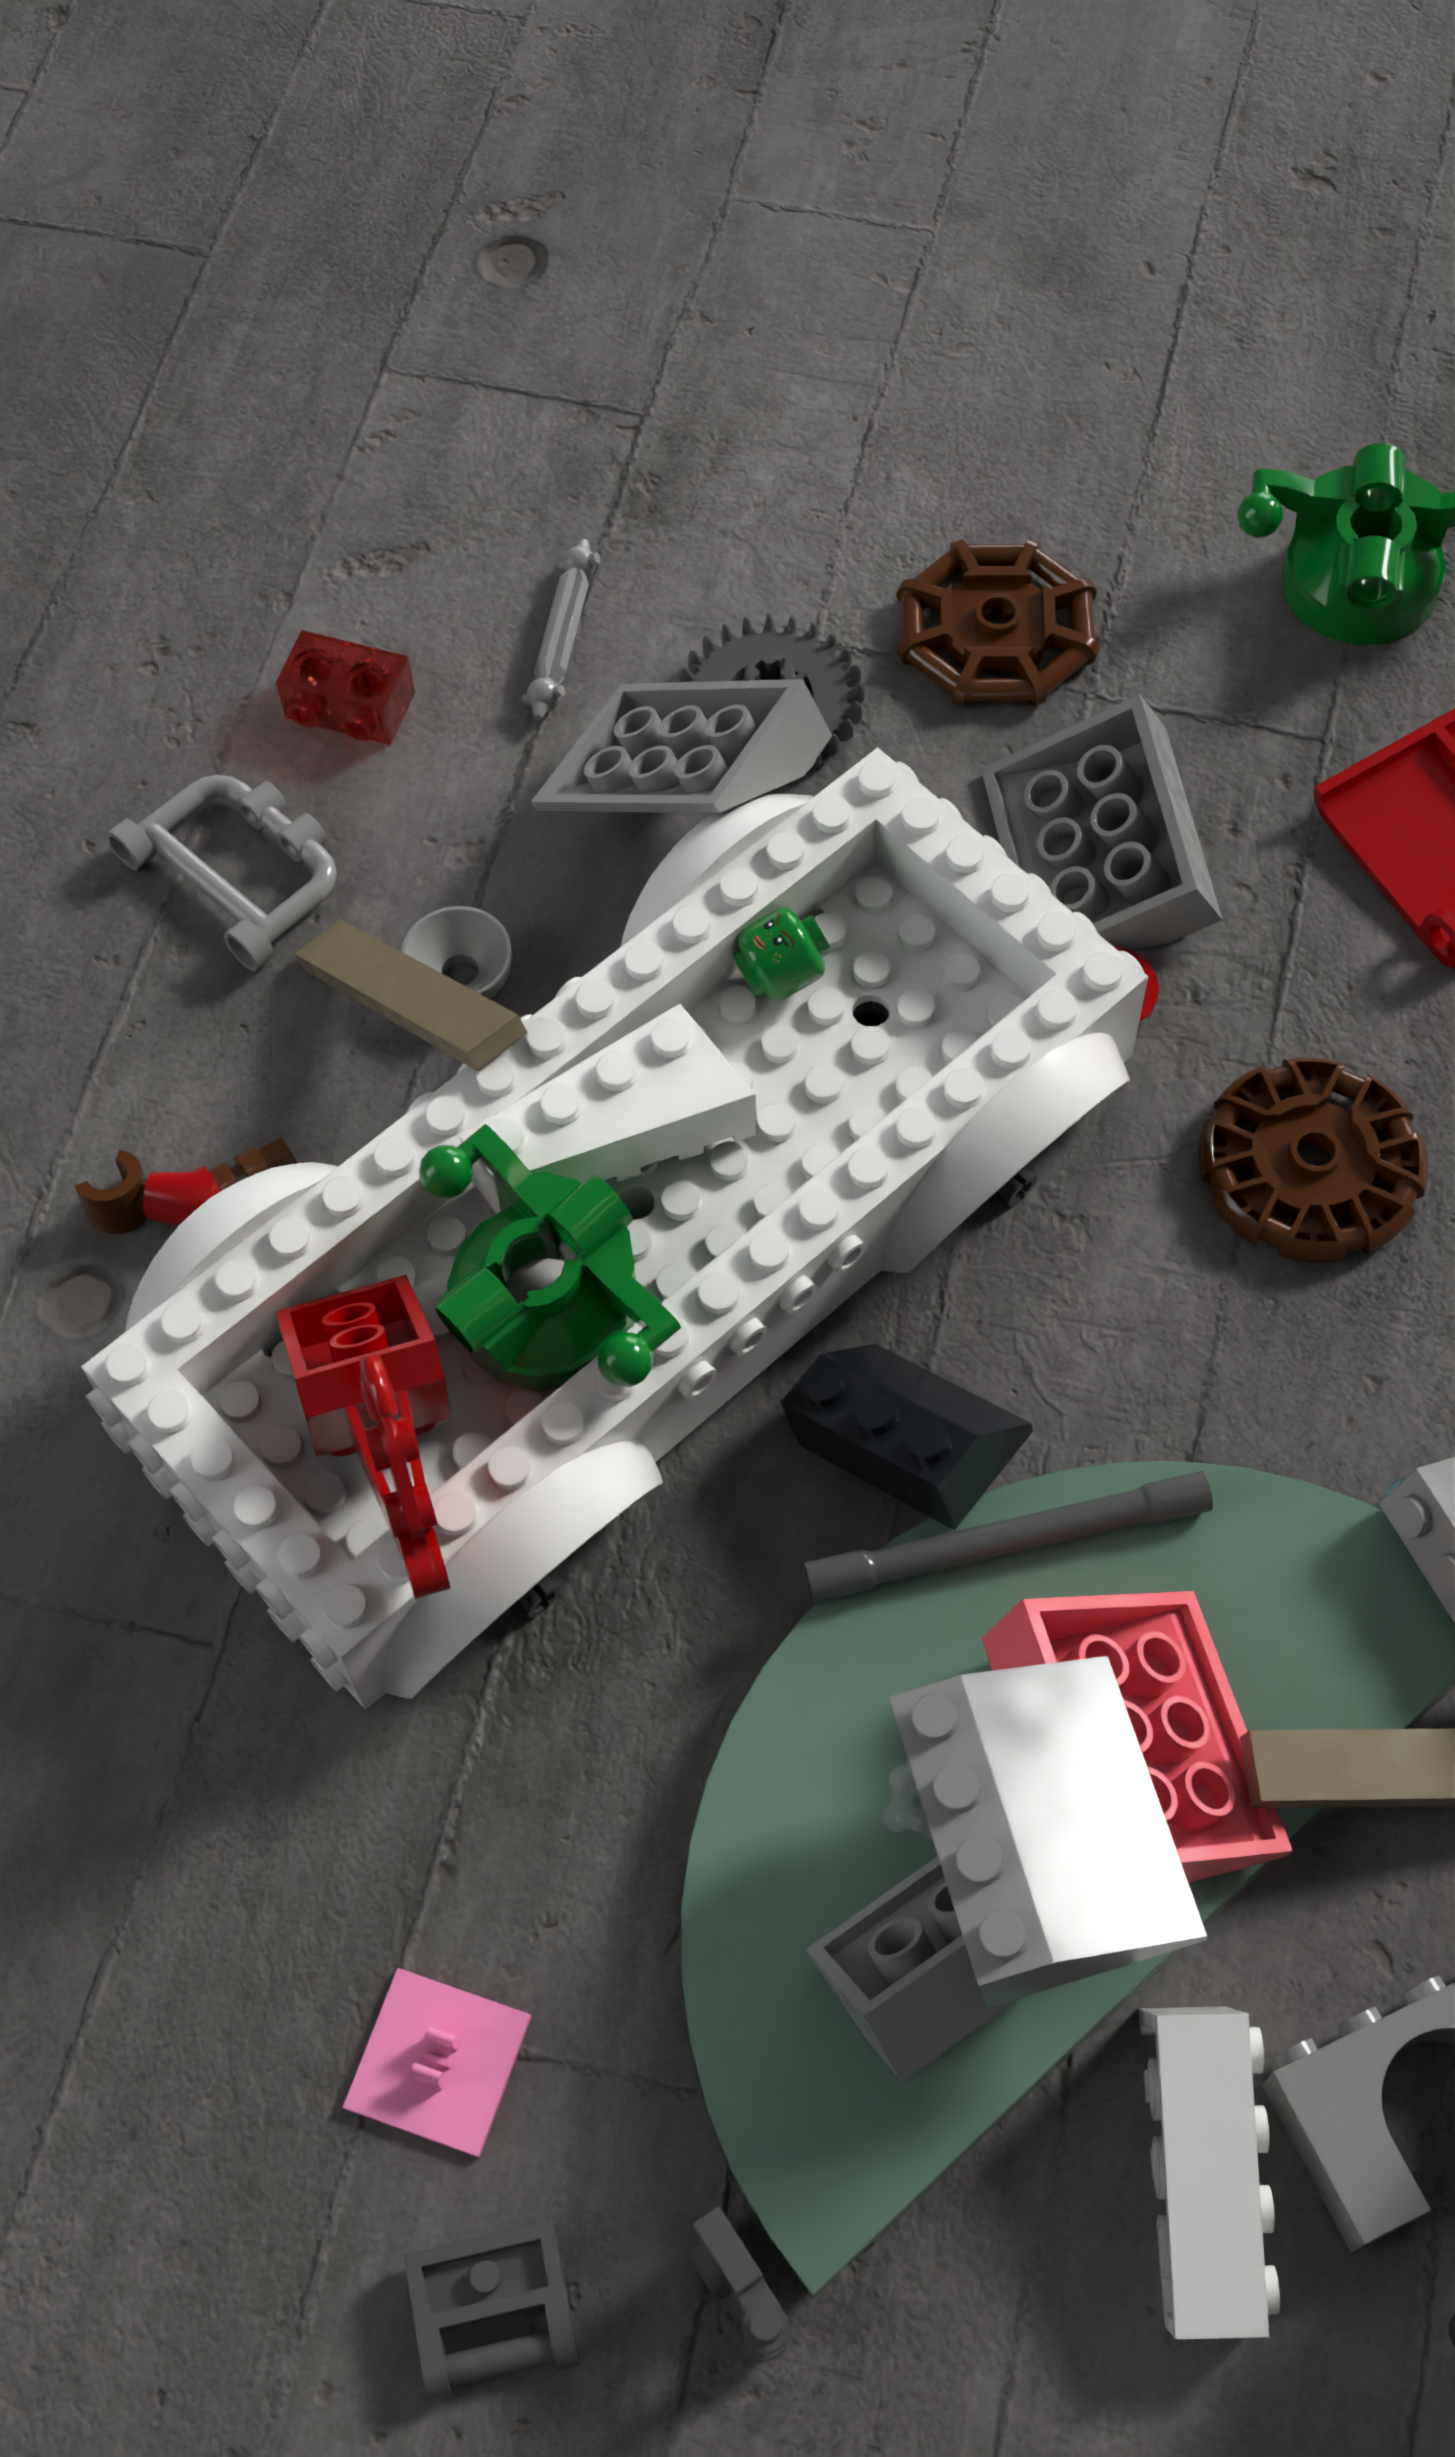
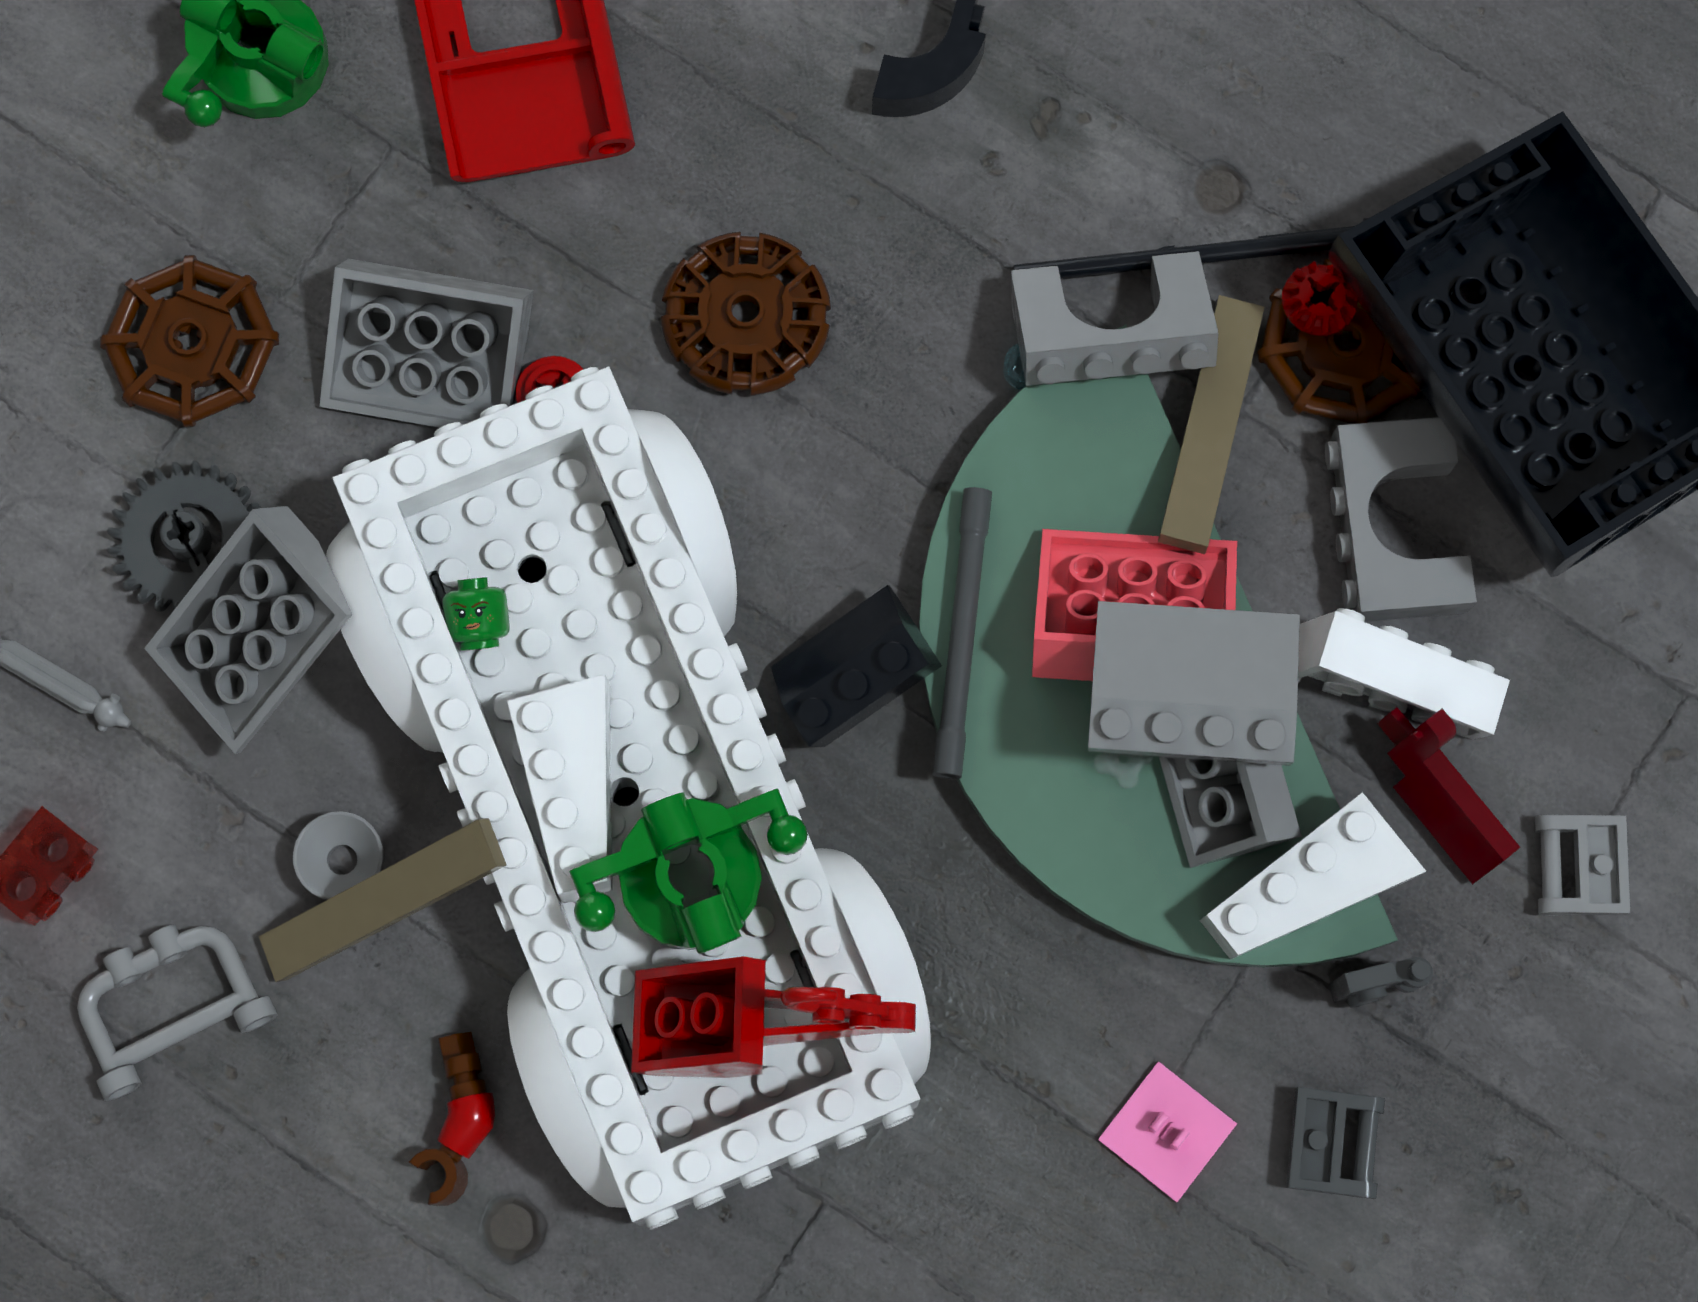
camera: 75 degrees left, 15 degrees up
(854, 2128) = (1324, 873): none -> white wedge
(1053, 2297) = (1444, 797): none -> dark red piece

